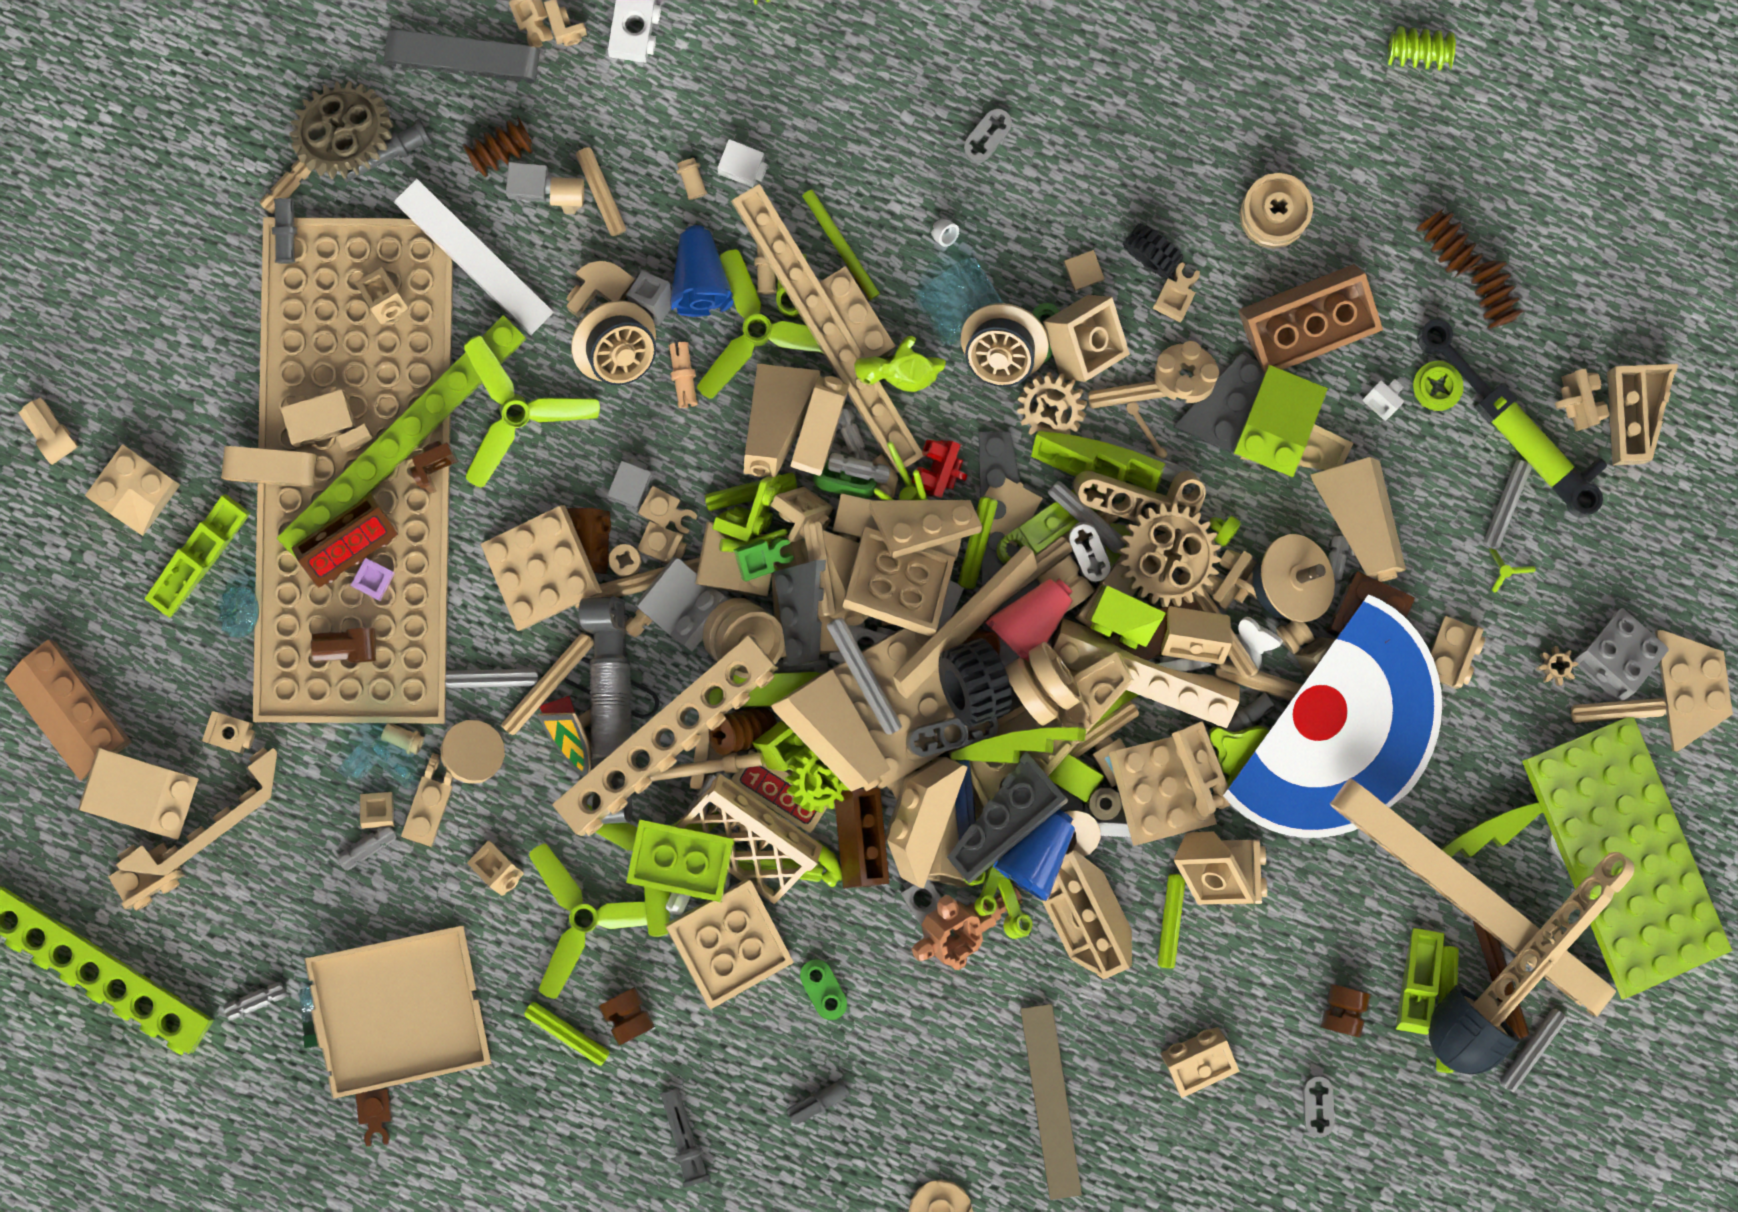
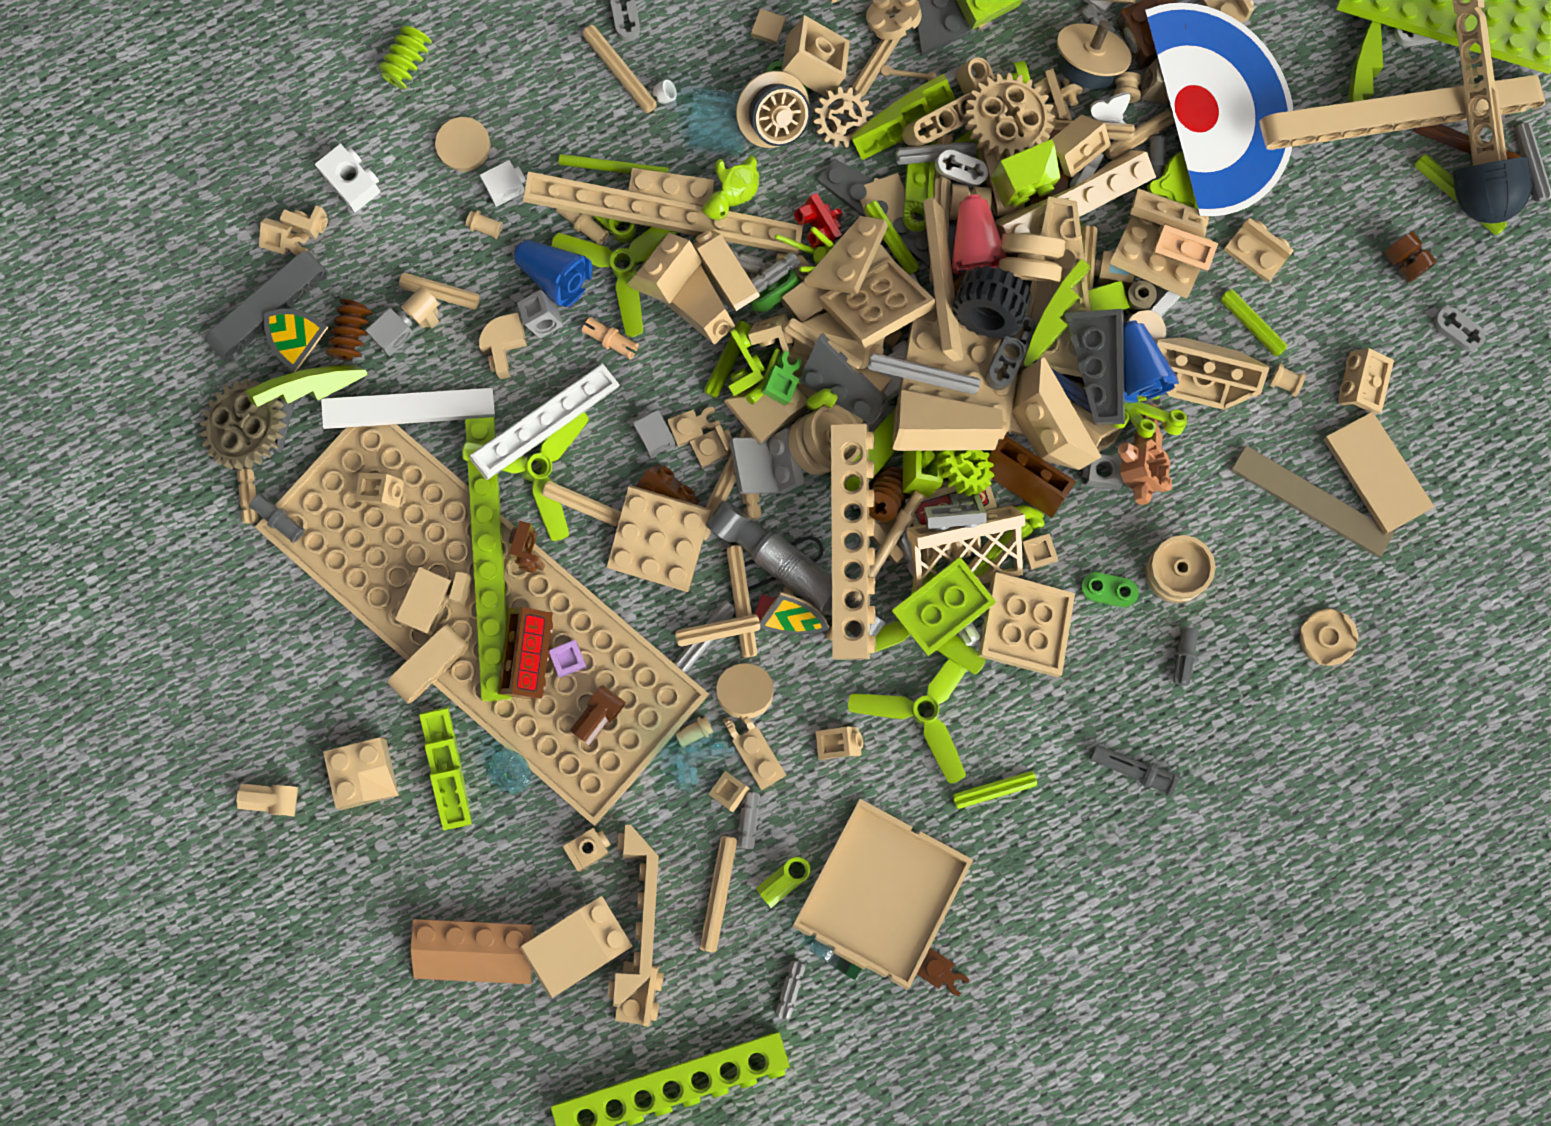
camera: 40 degrees left, 5 degrees down
(284, 873) = (718, 894): none -> tan axle
(339, 919) = (782, 882): none -> lime piece
(430, 160) = (316, 381): none -> slope
(451, 104) = (292, 335): none -> shield
(503, 685) = (717, 630): none -> tan axle
(516, 475) = (581, 503): none -> tan axle
(557, 384) = (543, 421): none -> white tile
(615, 343) = (550, 359): tan piece -> none
(623, 565) = (704, 485): tan wheel -> none
(626, 1016) = (1018, 737): reddish brown wheel -> none
(749, 97) = (462, 144): none -> tan tile
(772, 811) = (961, 512): none -> light grey plate
(774, 606) = (822, 397): none -> lime arm
(777, 374) = (666, 268): none -> tan slope
(805, 902) = (1039, 551): none -> tan plate
(888, 1016) = (1196, 569): none -> tan wheel
(933, 173) = (619, 69): none -> tan axle
(1123, 1138) = (1378, 473): none -> tan tile
(1142, 992) = (1287, 379): none -> tan bush
(1177, 806) = (1185, 247): none -> light nougat panel
(1211, 870) = (1246, 263): tan slope -> none
(1420, 981) = (1429, 195): lime slope -> none

